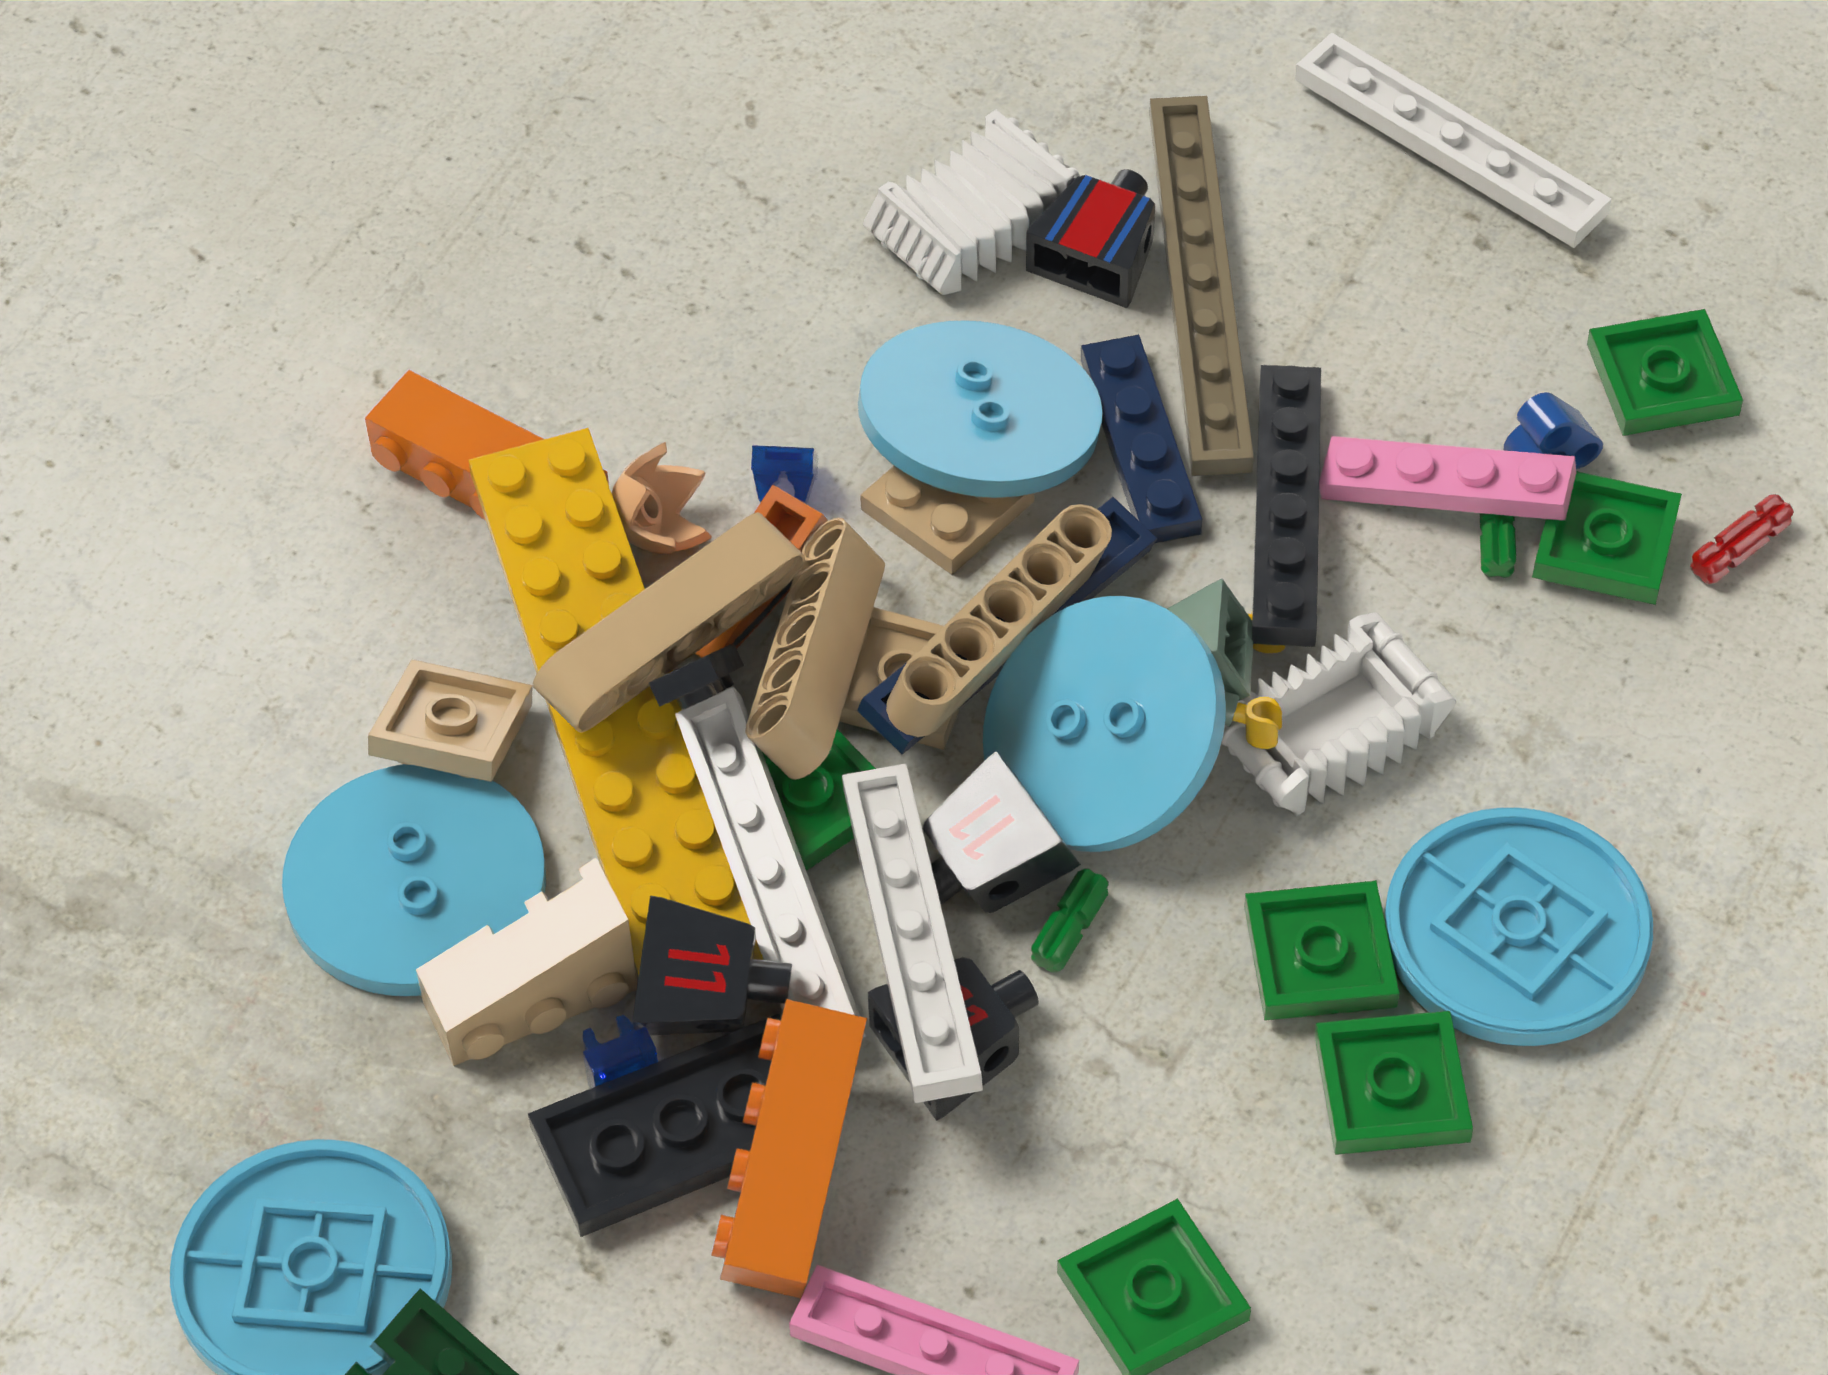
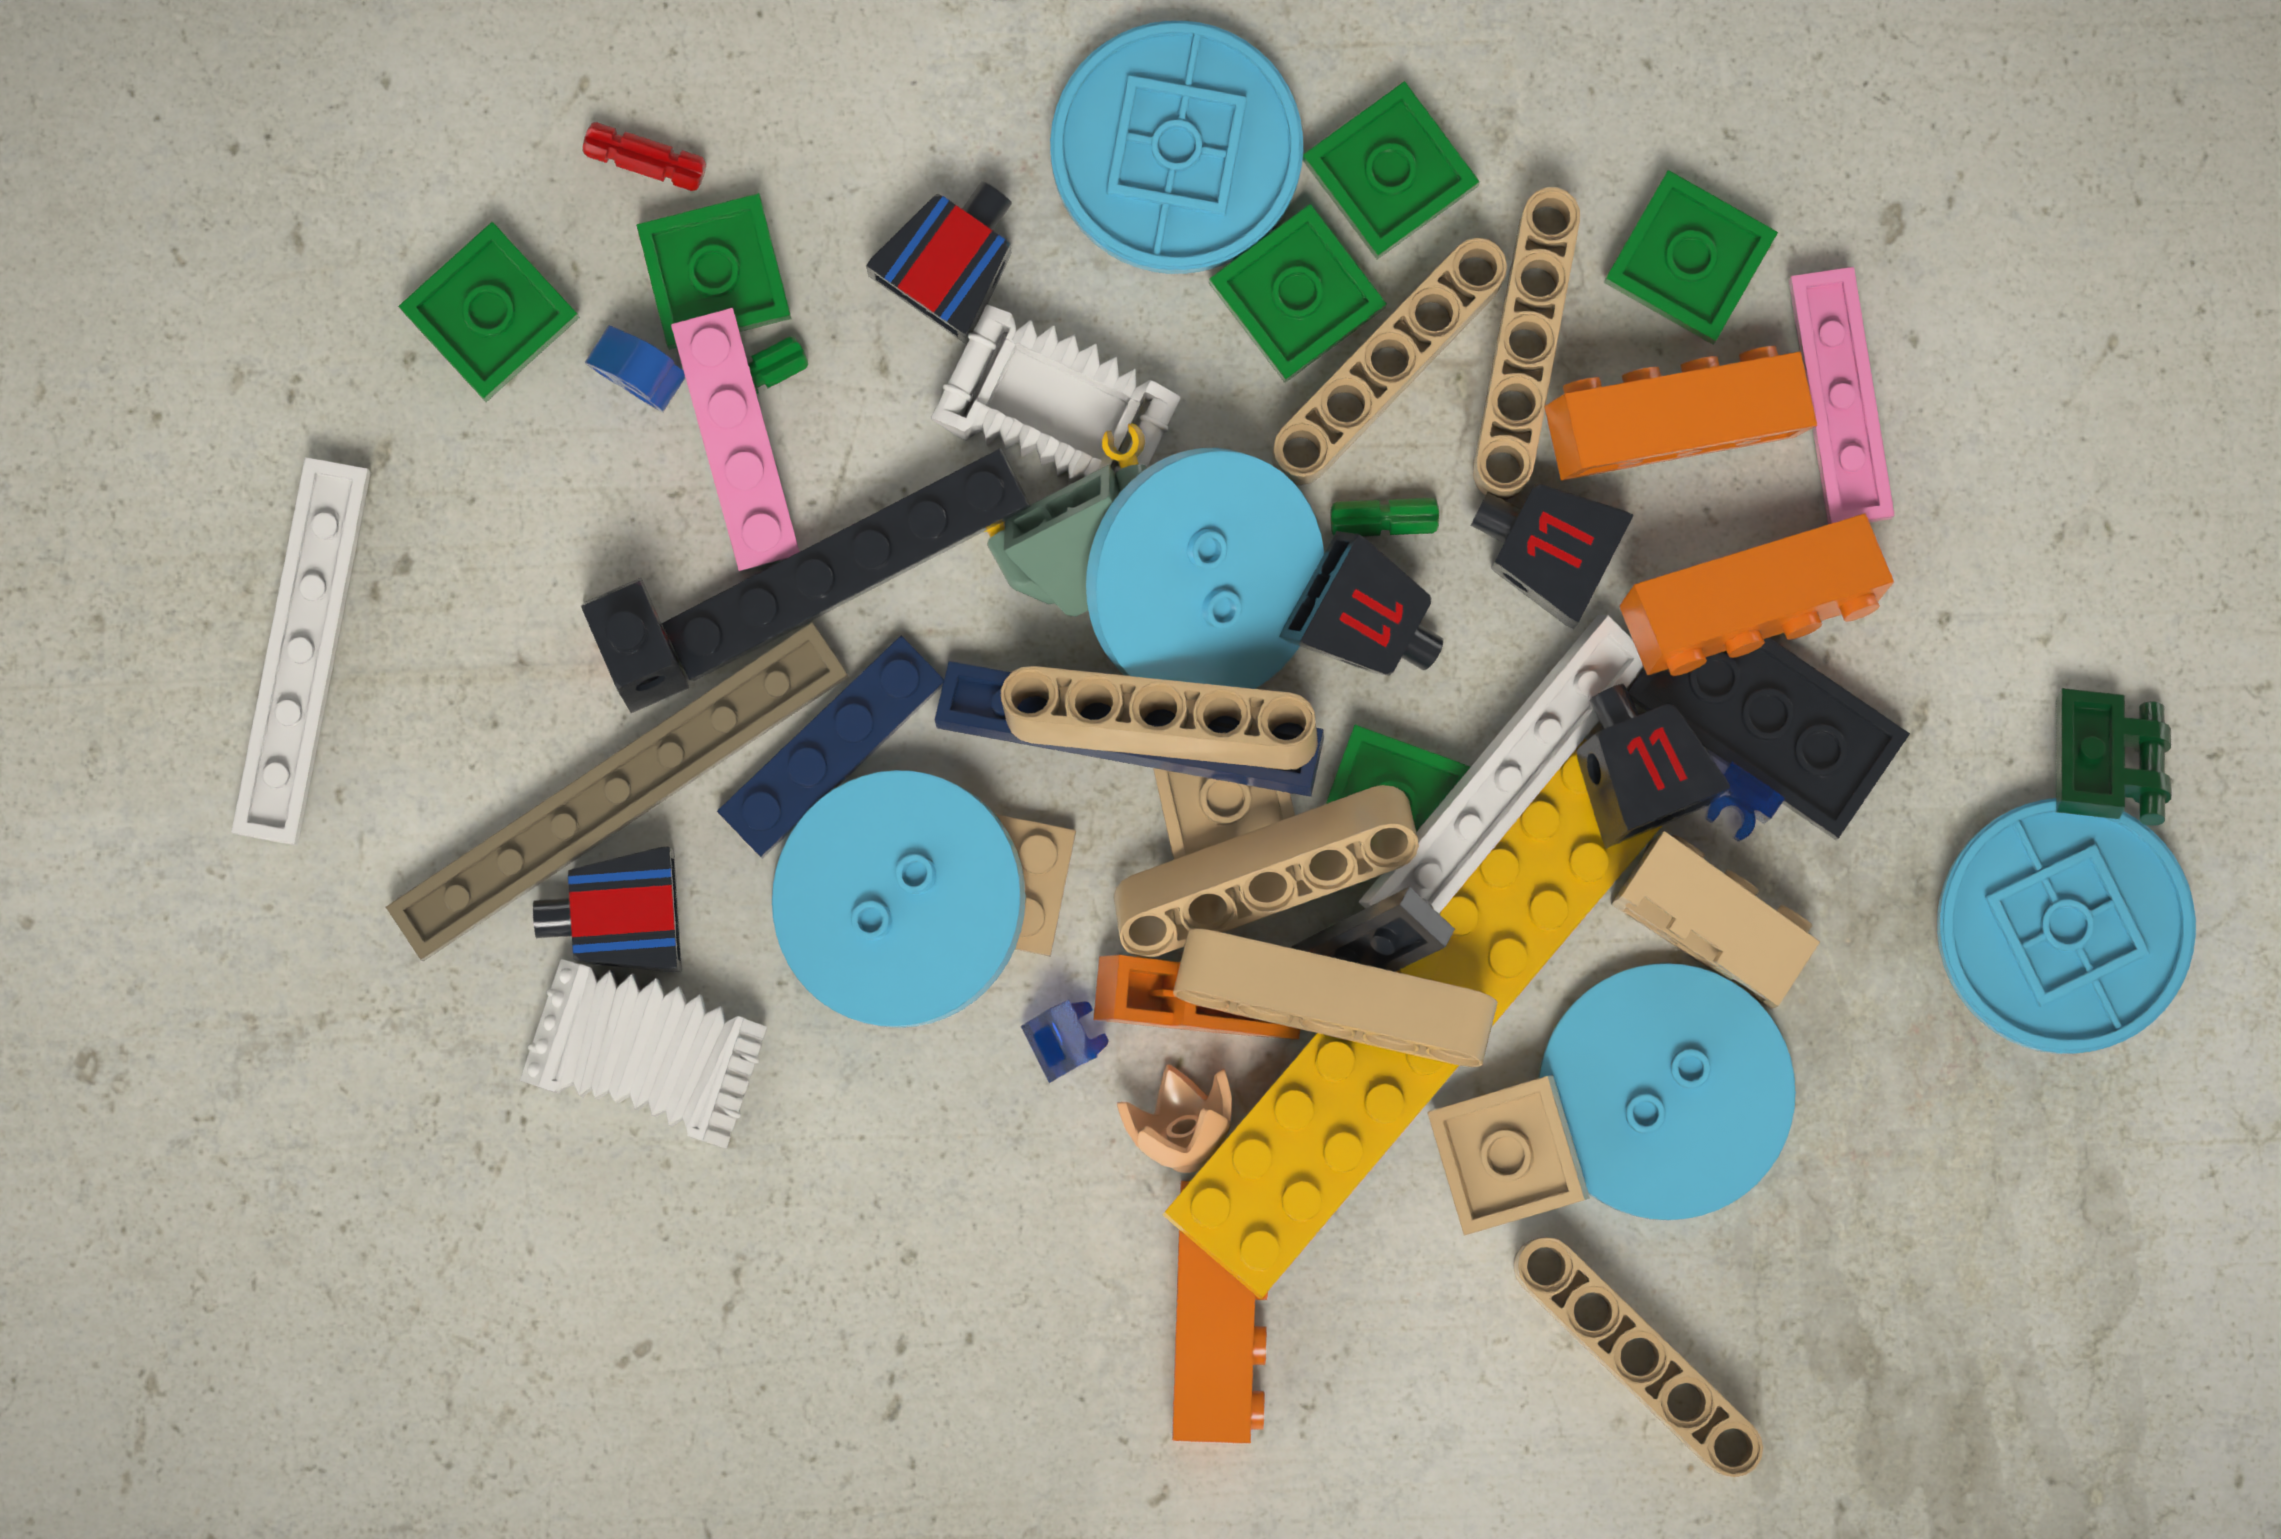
camera: 125 degrees left, 30 degrees up
(185, 726) = (1666, 1371): none -> tan beam
(912, 934) = (1510, 613): white plate -> none
(1004, 1177) = (1679, 413): none -> orange brick
(1167, 1131) = (1530, 313): none -> tan beam
(1211, 1012) = (1397, 332): none -> tan beam
(1319, 323) = (634, 645): none -> black torso
(1514, 698) = (947, 259): none -> torso

